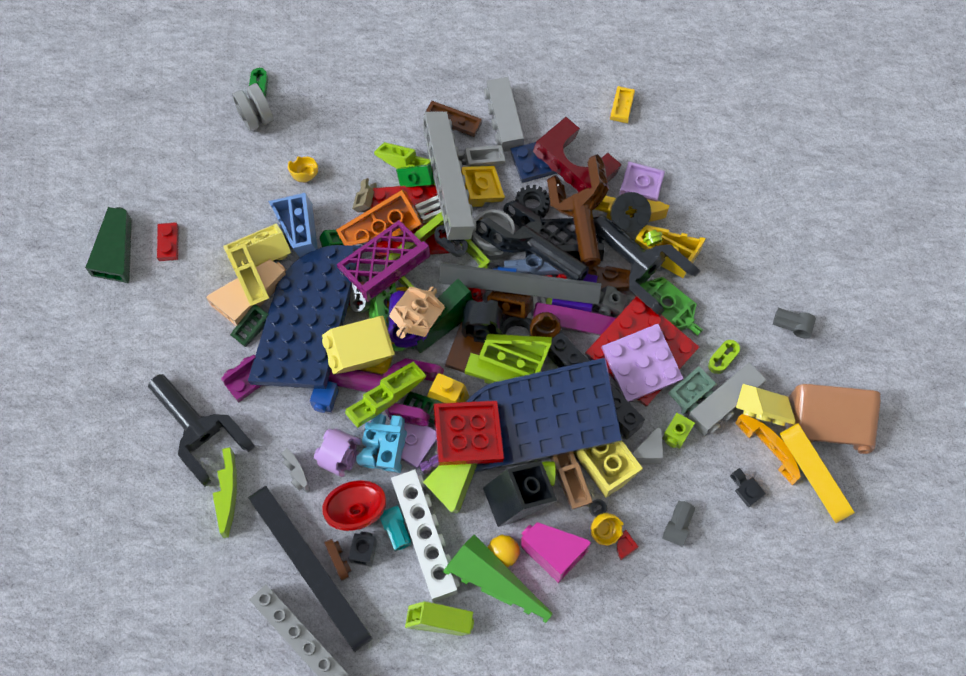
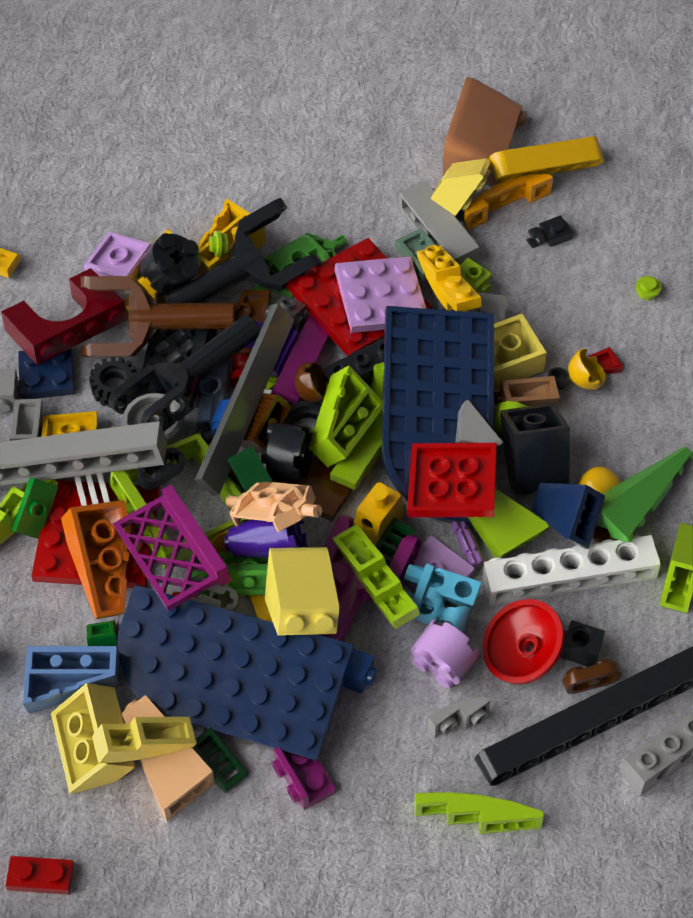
camera: 80 degrees left, 10 degrees down
(196, 428) = (370, 846): black piece -> none
(363, 198) = (46, 583): dark tan plate -> none
(394, 525) = (562, 600): teal piece -> none
(463, 524) = (569, 510): none -> dark blue slope
(515, 442) = (473, 428): none -> light grey slope
(554, 549) = (613, 424): dark pink slope -> none
(659, 408) = (446, 280): none -> yellow slope
(677, 528) = (593, 305): dark grey piece -> none
(708, 572) = (648, 287): none -> lime plate
(727, 359) = (378, 224): lime beam -> none
(801, 324) = (353, 143): dark grey piece -> none

